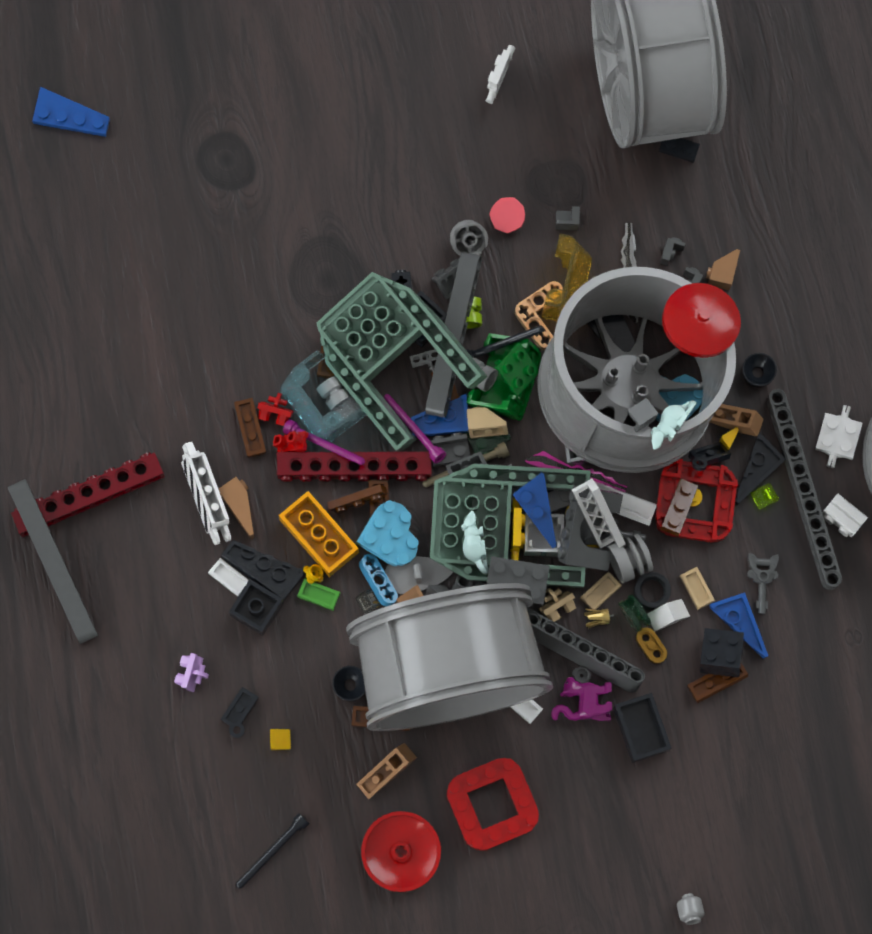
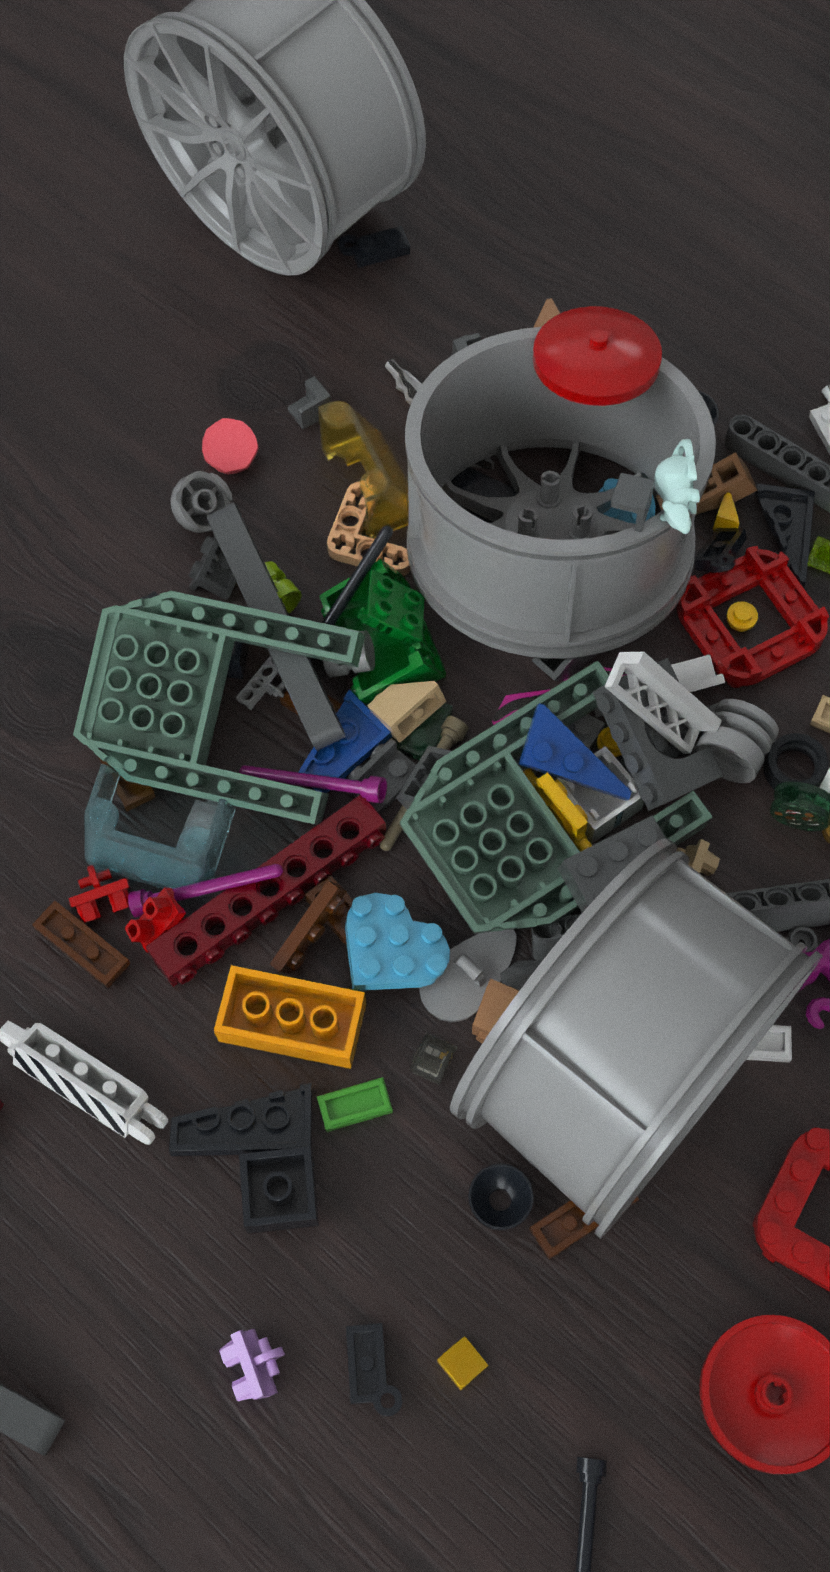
camera: 30 degrees left, 10 degrees down
(228, 577) = (204, 1177): white tile -> none
(237, 500) = (138, 1059): medium nougat slope -> none
(316, 570) = (325, 1079): yellow plate -> none
(333, 392) = (164, 813): light grey wheel -> none
(386, 770) = (654, 1286): medium nougat slope -> none
(390, 590) = (417, 1007): dark azure beam -> none
(473, 546) = (525, 869): light aqua animal -> none
(496, 77) = (88, 296): white plate -> none
(600, 591) = (730, 816): tan tile -> none
(600, 617) = (760, 846): pearl gold piece -> none
(679, 507) = (742, 634): plate -> none

